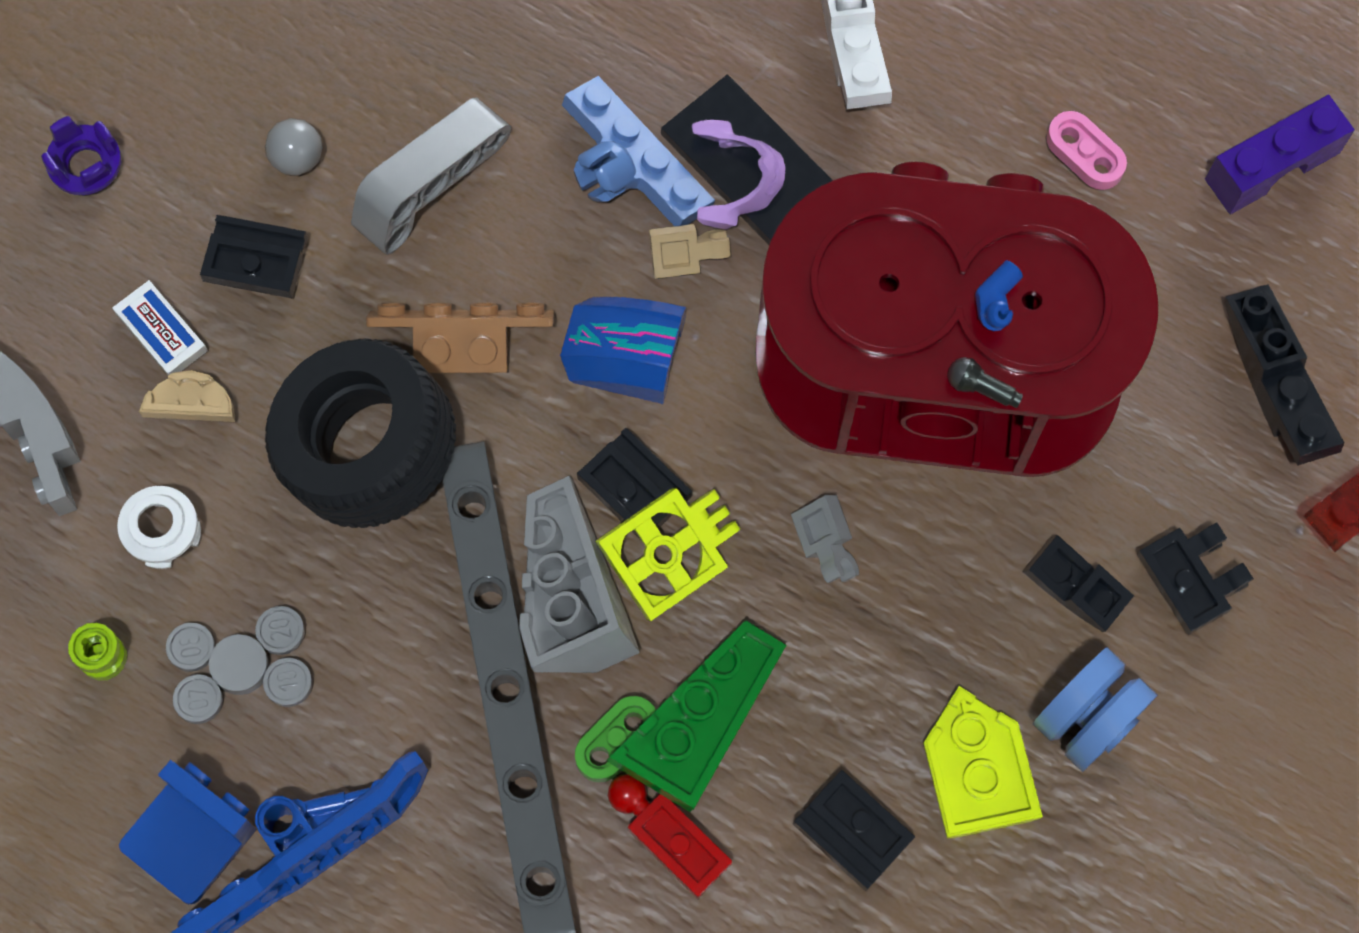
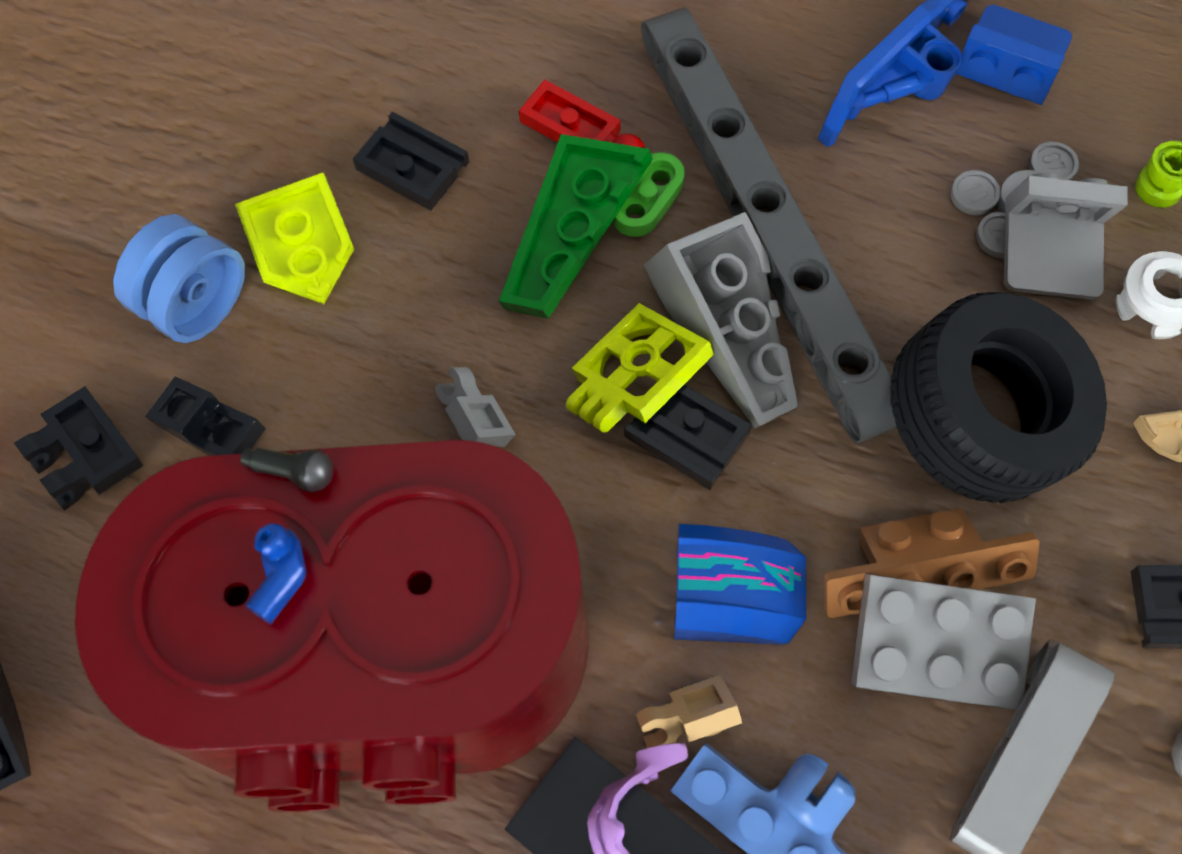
camera: 175 degrees right, 5 degrees down
(236, 596) = (1058, 235): none -> light grey bracket
(471, 261) = (943, 642): none -> light grey plate

